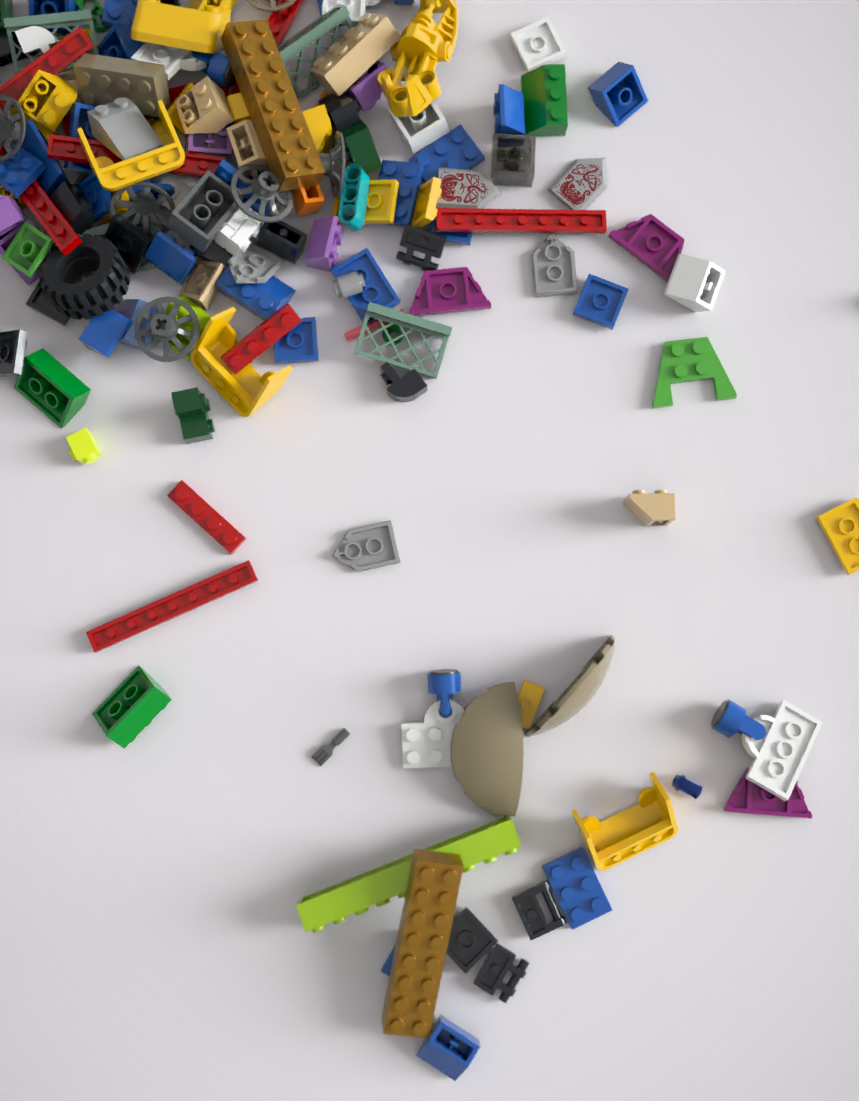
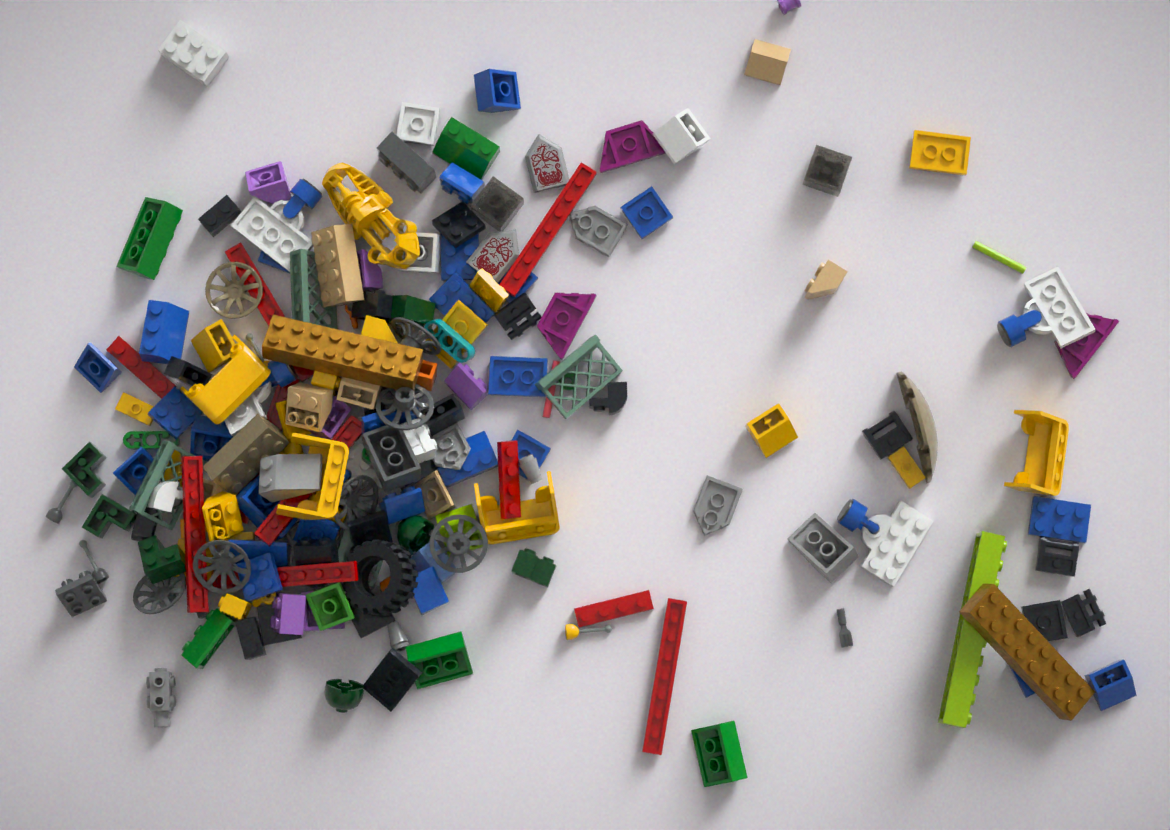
camera: 55 degrees left, 0 degrees up
(49, 336) = (397, 637): none -> light grey cone
(83, 446) = (501, 665): neon yellow brick -> none
(153, 284) = (414, 533): none -> dark green cylinder
(159, 492) = (572, 630): none -> hinge
(285, 350) = (530, 468): none -> light grey cone
(349, 284) = (512, 388): light grey brick -> none
(395, 675) = (823, 547): none -> light grey slope
(469, 138) = (458, 224): none -> black plate
(473, 551) = (771, 430): none -> yellow slope
(489, 750) = (923, 514): dark tan brick -> none
(492, 52) = (405, 163): none -> dark grey brick
(541, 672) = (890, 441): none -> black plate
(686, 786) = (1039, 393): clear blue pin -> none
(690, 362) = (734, 180): bright green wing -> none
(759, 439) = (827, 170): none -> clear smoke brick
(791, 659) = (999, 257): none -> lime bar
(821, 318) = (767, 62): none -> tan slope

